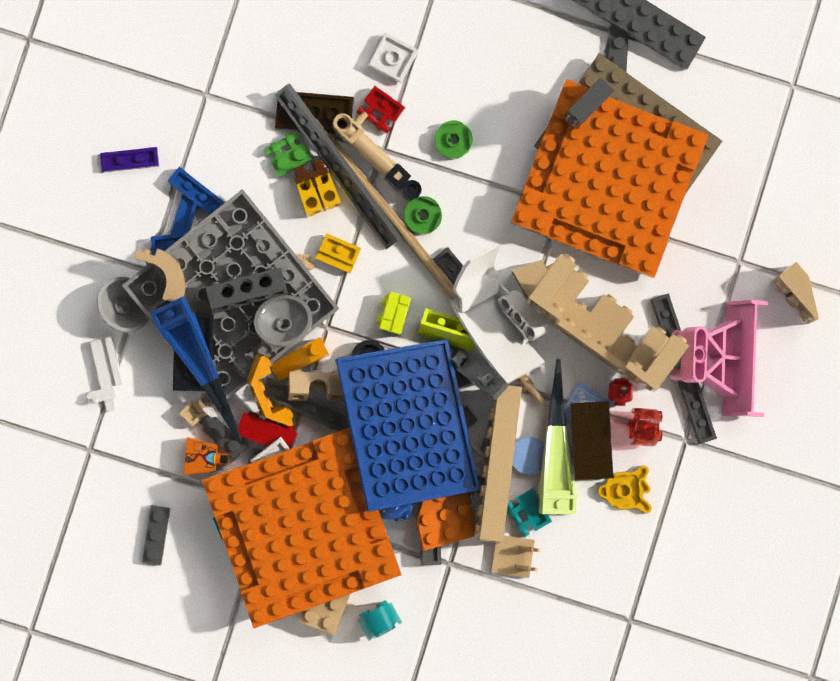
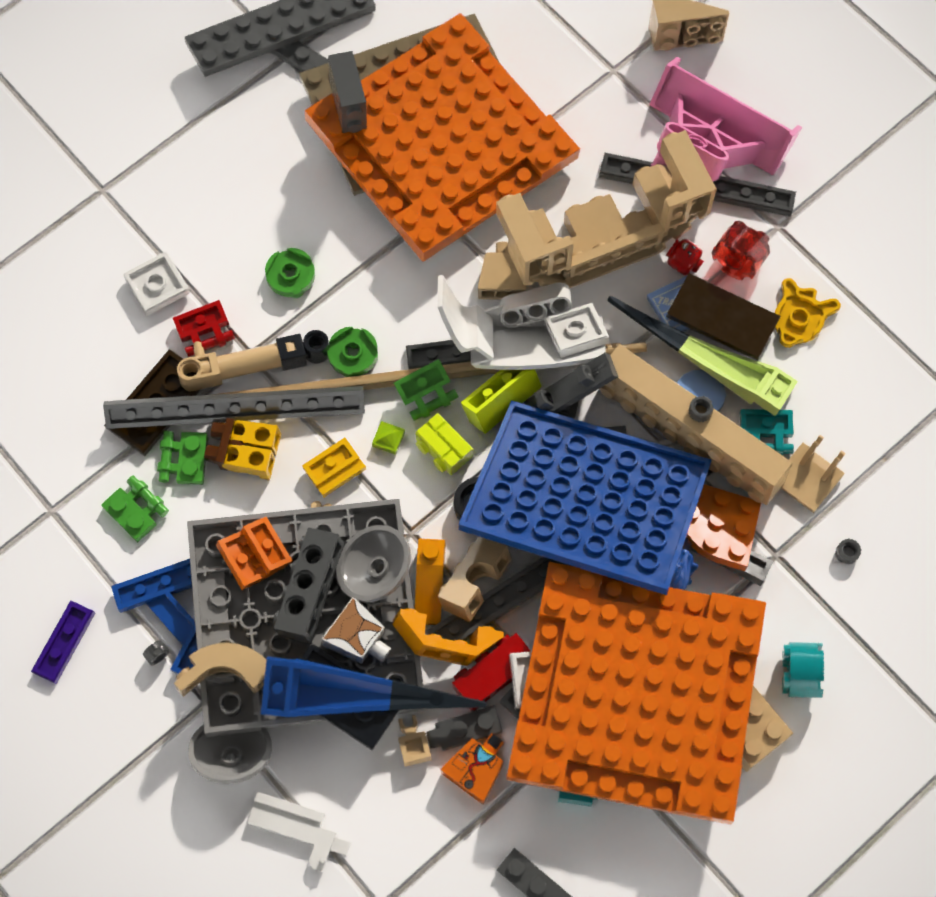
camera: 50 degrees left, 15 degrees down
(156, 221) = (156, 652): none -> dark grey axle
(232, 144) = (129, 514): none -> bright green plate
(234, 338) = (356, 634): none -> torso
(247, 243) = (254, 553): none -> orange slope
(379, 274) = (388, 437): none -> lime tile
(425, 274) = (423, 382): none -> bright green plate
(478, 613) = (842, 557): none -> dark grey axle
(498, 467) = (704, 401): none -> dark grey axle
(517, 353) = (576, 330): none -> white plate

